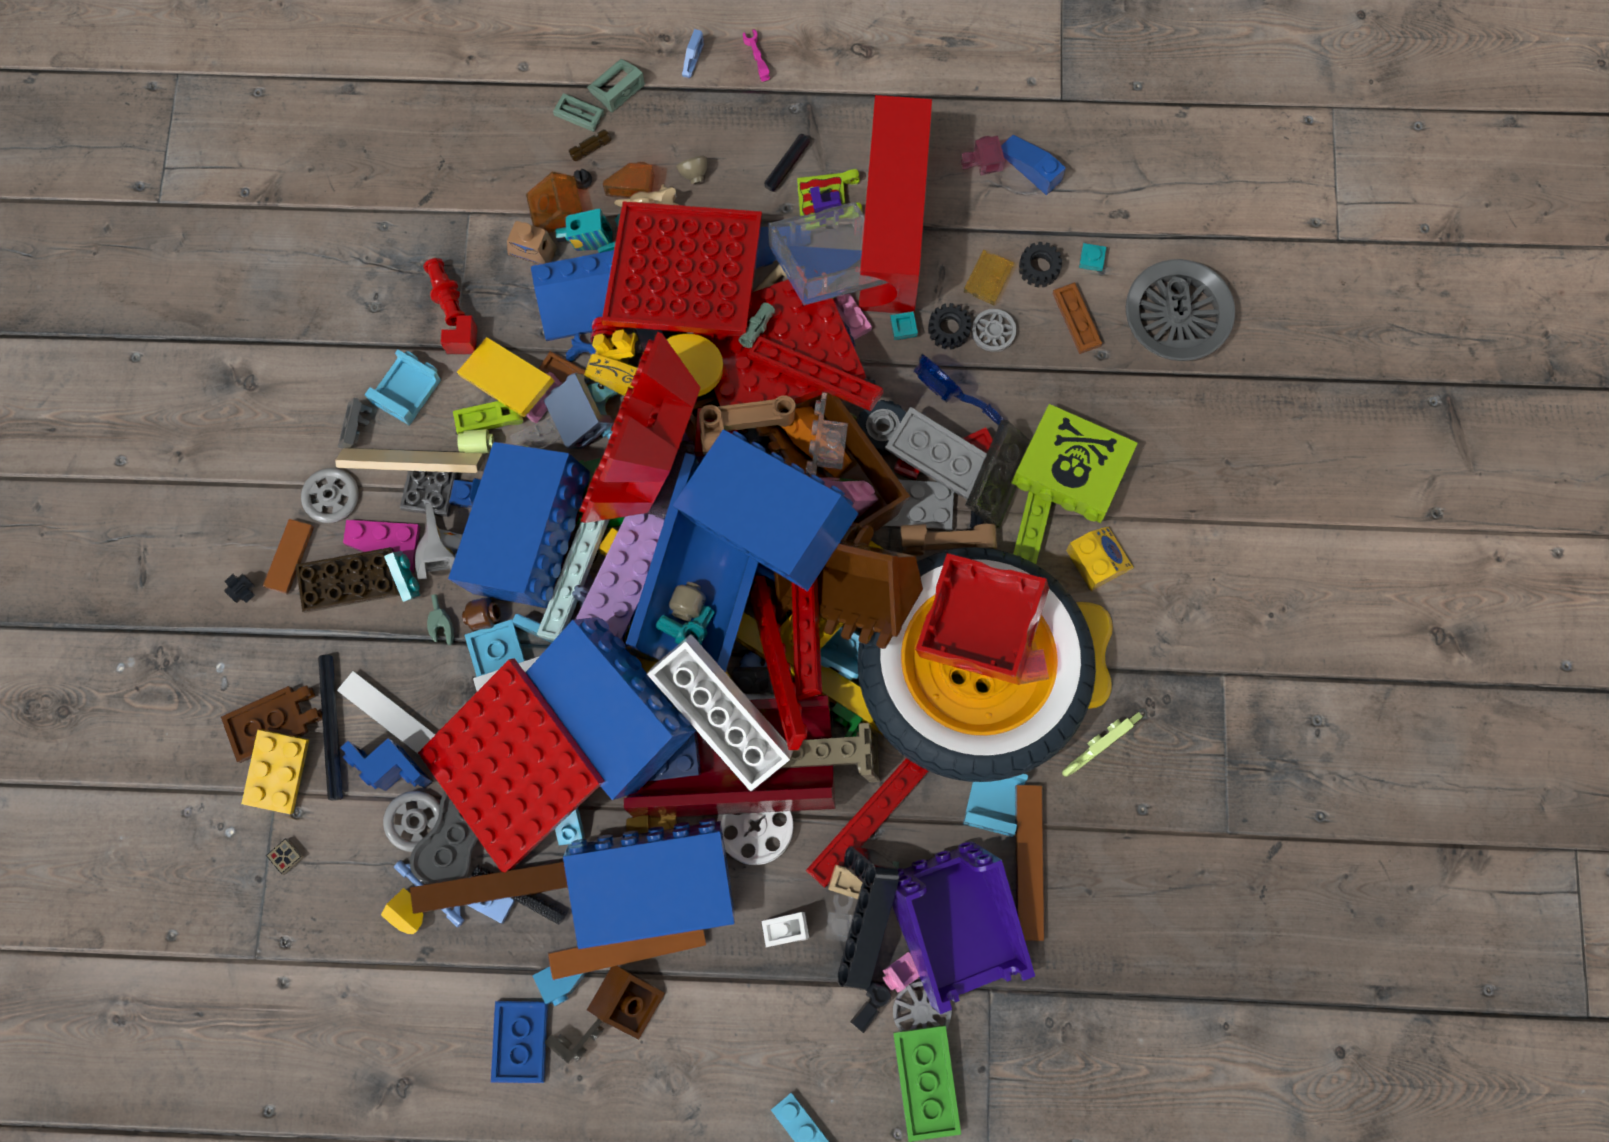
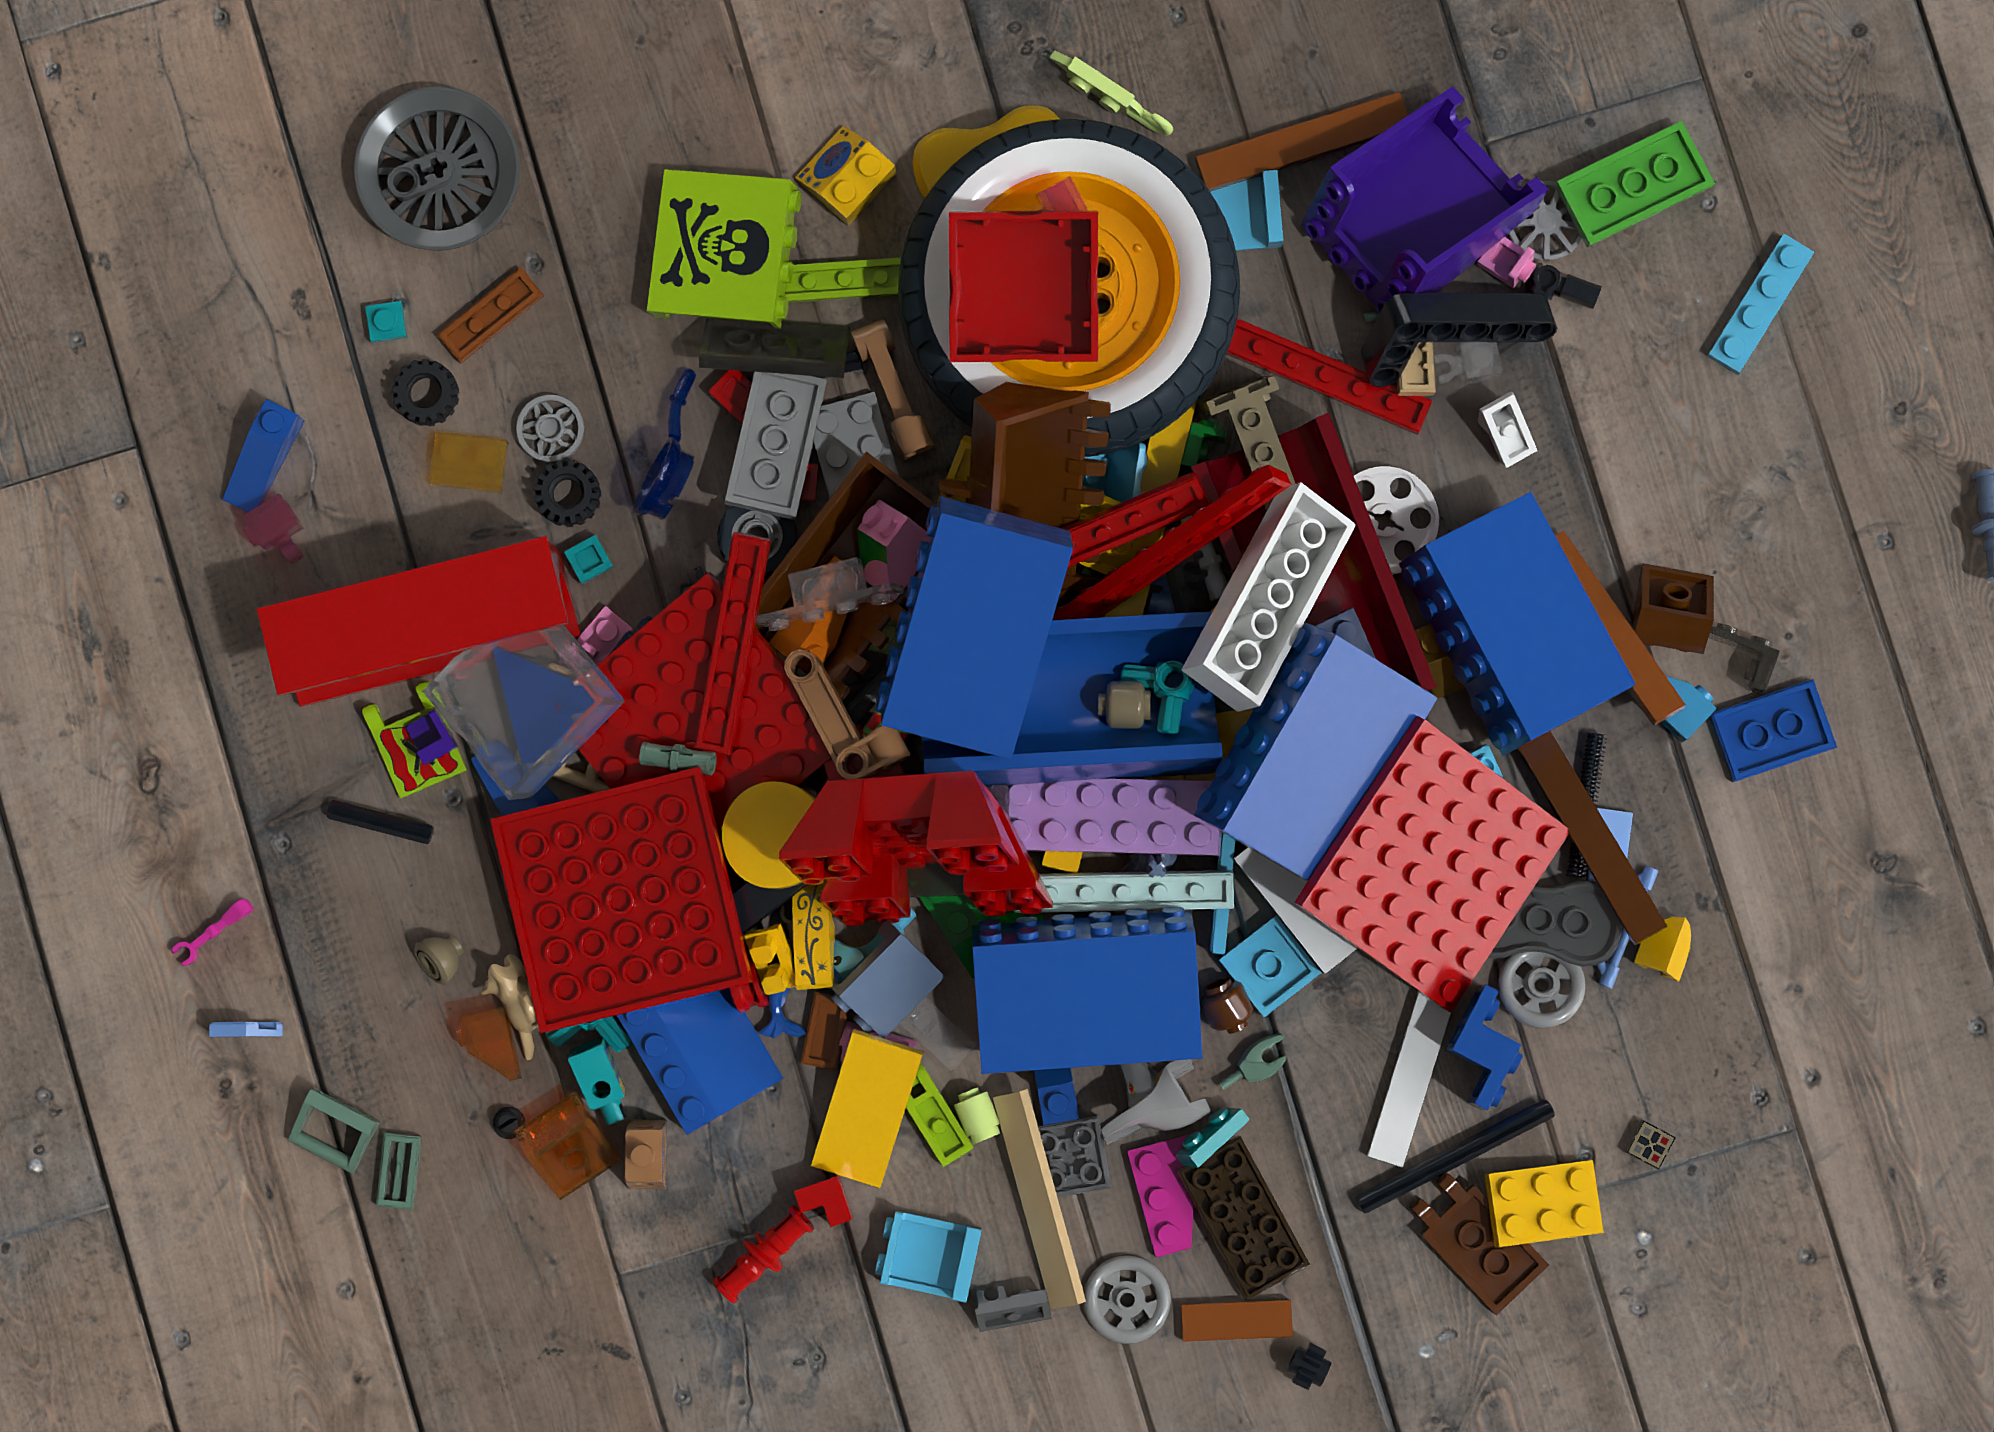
camera: 110 degrees left, 10 degrees up
(589, 145) = (449, 1132): dark brown axle -> none

